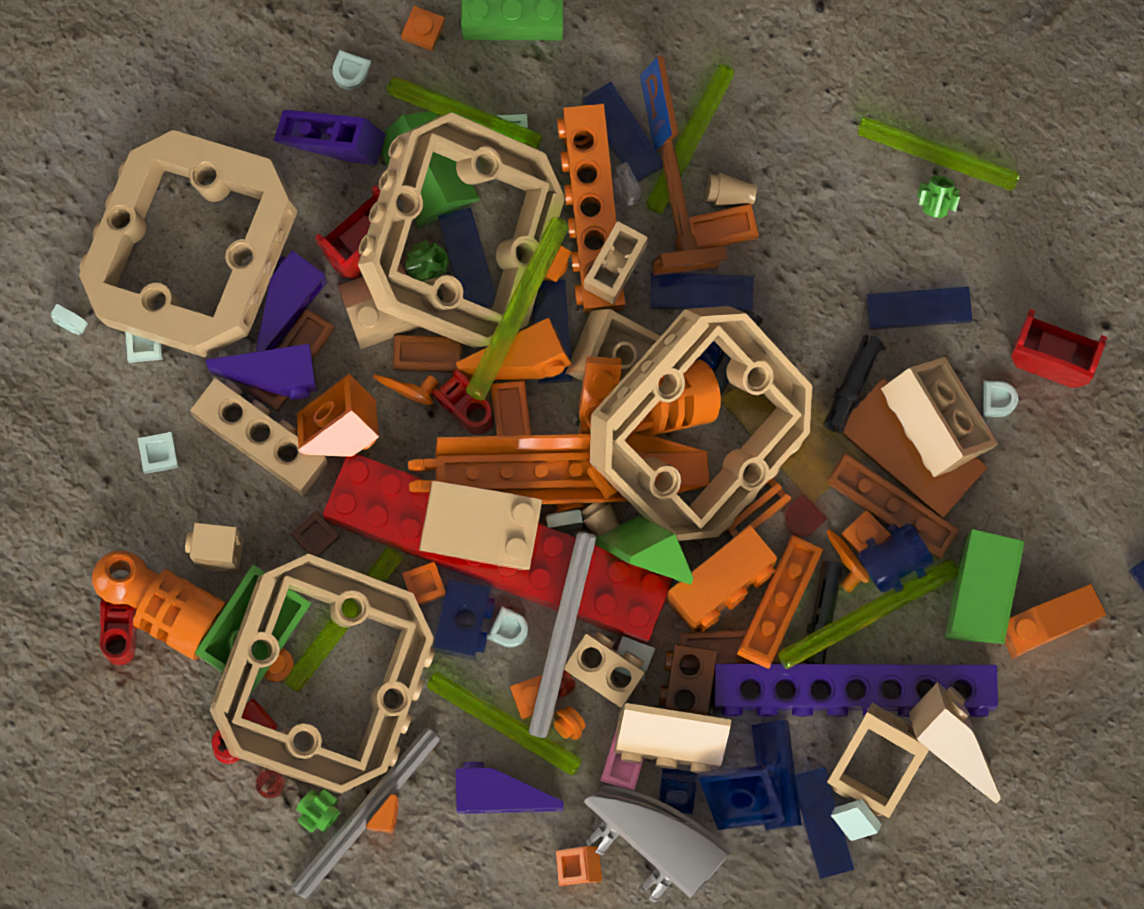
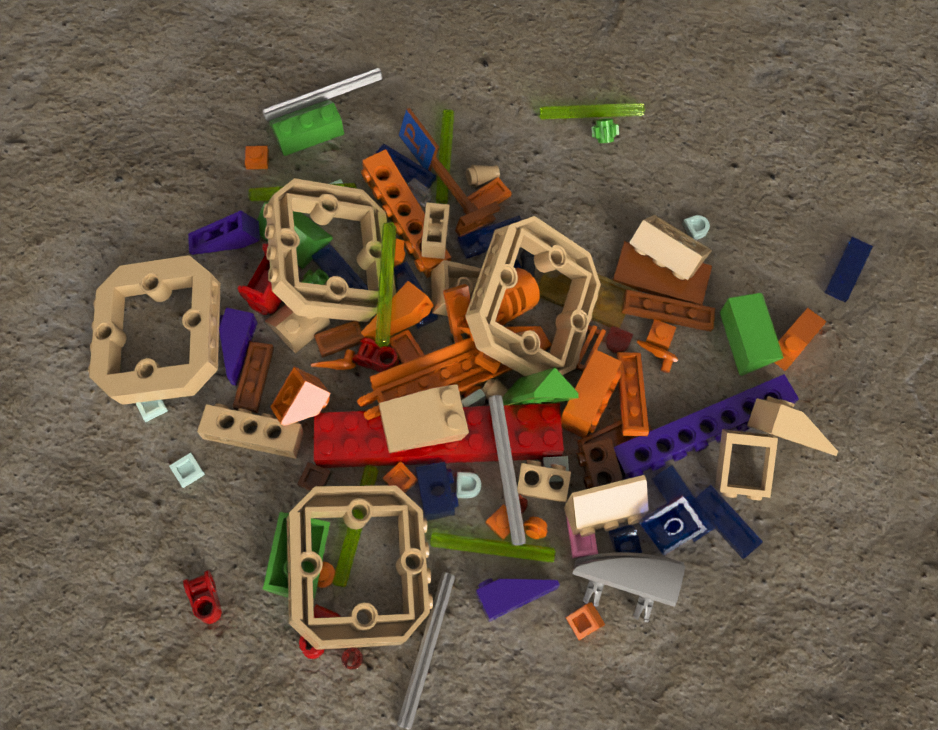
camera: 25 degrees left, 10 degrees down
(68, 320) = (93, 409): light aqua tile -> none
(165, 603) = (229, 565): orange cylinder -> none
(215, 547) = (249, 512): tan brick -> none
(277, 371) = (242, 385): dark purple slope -> none
(318, 810) = (393, 662): bright green gear -> none
(350, 70) = (221, 196): light aqua tile -> none
(386, 816) = (442, 645): orange slope -> none
(825, 603) = (663, 399): black pin -> none
(848, 394) = (610, 257): black pin -> none
(856, 820) = (749, 508): light aqua tile -> none
(867, 614) = (688, 379): clear neon green axle -> none
(896, 557) = (687, 339): clear blue piece -> none
(919, 308) = (624, 196): clear blue tile -> none
(1056, 352) = (719, 185): red piece -> none

